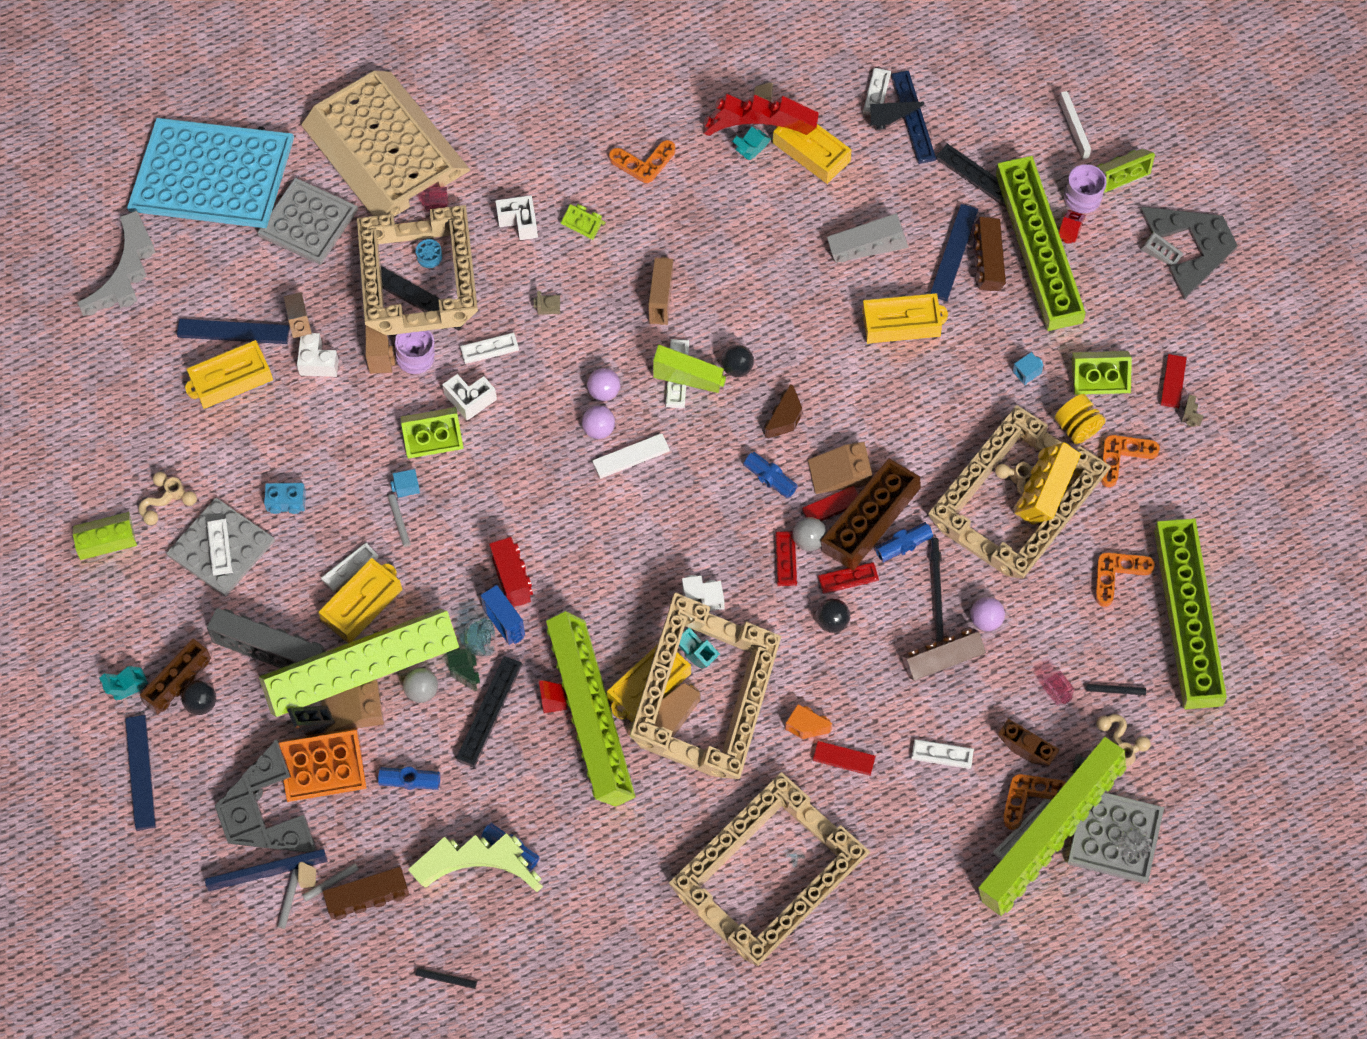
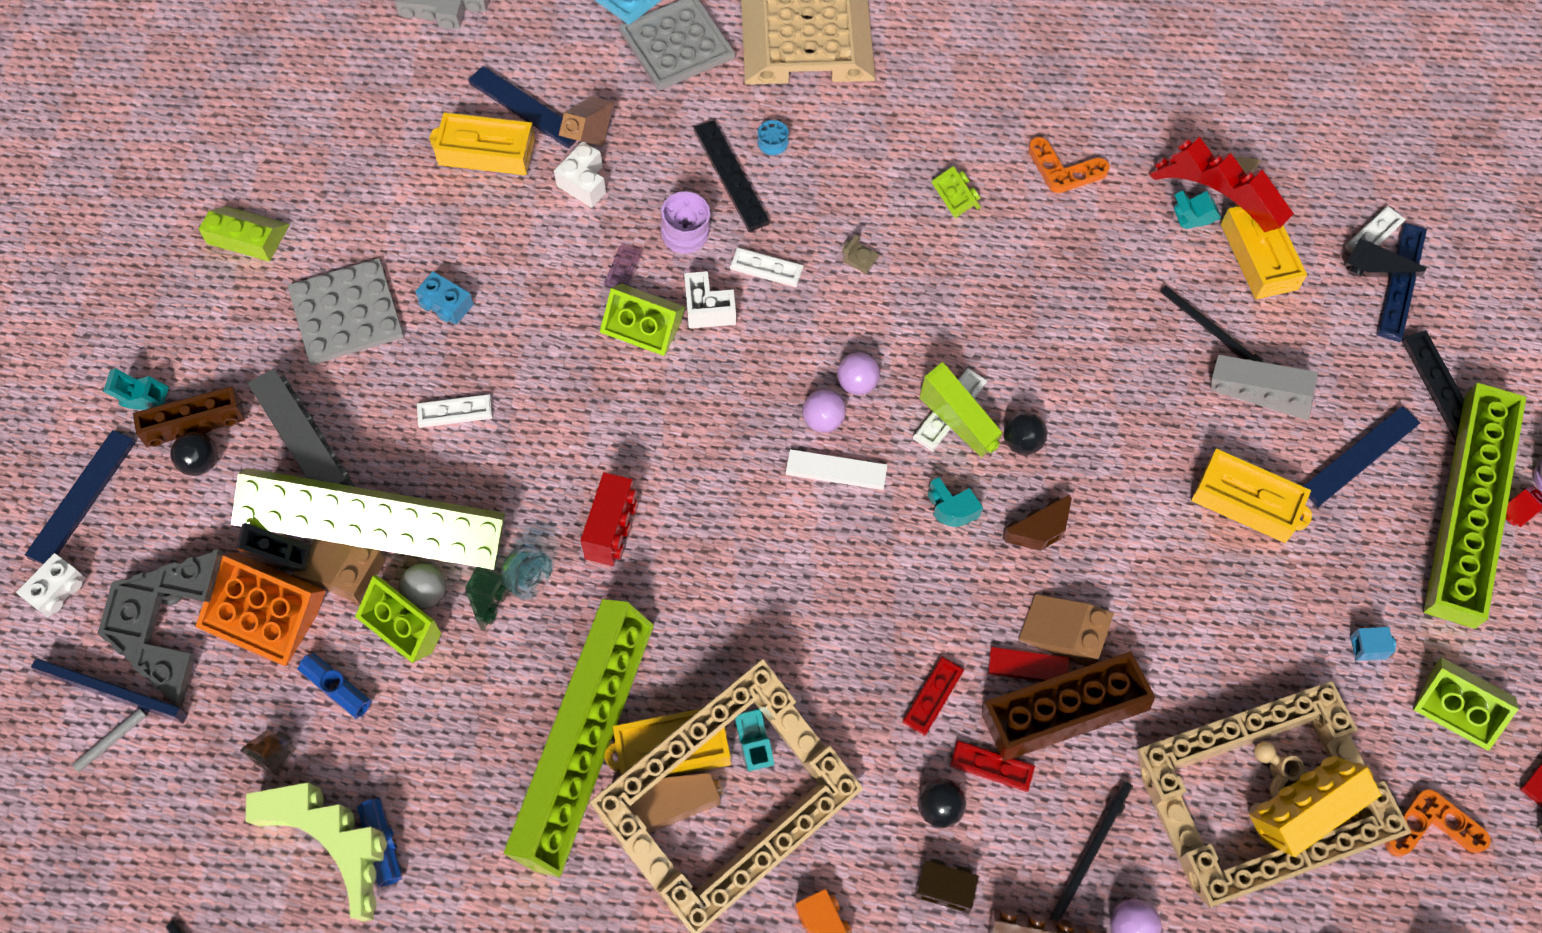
camera: 30 degrees right, 0 degrees up
(160, 479) = (342, 225): tan piece -> none
(172, 834) = (51, 585): none -> white brick
(219, 547) = (339, 309): white tile -> none
(306, 876) = (144, 725): tan slope -> none
(330, 882) = (165, 750): light grey bar -> none
(361, 600) = (434, 452): yellow piece -> none
(366, 893) = (184, 790): reddish brown brick -> none
(378, 352) = (647, 196): medium nougat slope -> none
(383, 230) = (728, 84): tan slope -> none
(391, 405) = (623, 266): none -> clear purple tile
(399, 520) = (541, 392): light grey bar -> none
(402, 839) = (270, 751): none -> clear smoke slope
(405, 483) = (575, 356): dark azure brick -> none
(422, 712) = (398, 621): none -> lime slope
(435, 198) = (818, 88): clear pink brick -> none
(489, 712) = (475, 664): black plate -> none
(503, 615) = (566, 563): blue window -> none
(518, 212) = (893, 147): white brick -> none
(552, 696) = (548, 689): red slope -> none
(661, 291) = (989, 310): medium nougat slope -> none
(707, 593) = (803, 680): white brick -> none
(721, 437) = (956, 509): none -> teal brick
(770, 474) = (979, 586): blue piece -> none
(809, 219) = (1209, 325): none -> black bar
(809, 533) = (977, 683): light grey piece -> none
(866, 660) = (947, 885): none -> dark brown brick
(903, 542) = (1087, 764): blue piece -> none
(989, 254) = (1403, 481): reddish brown brick -> none
(1079, 419) = (1404, 746): yellow wheel -> none

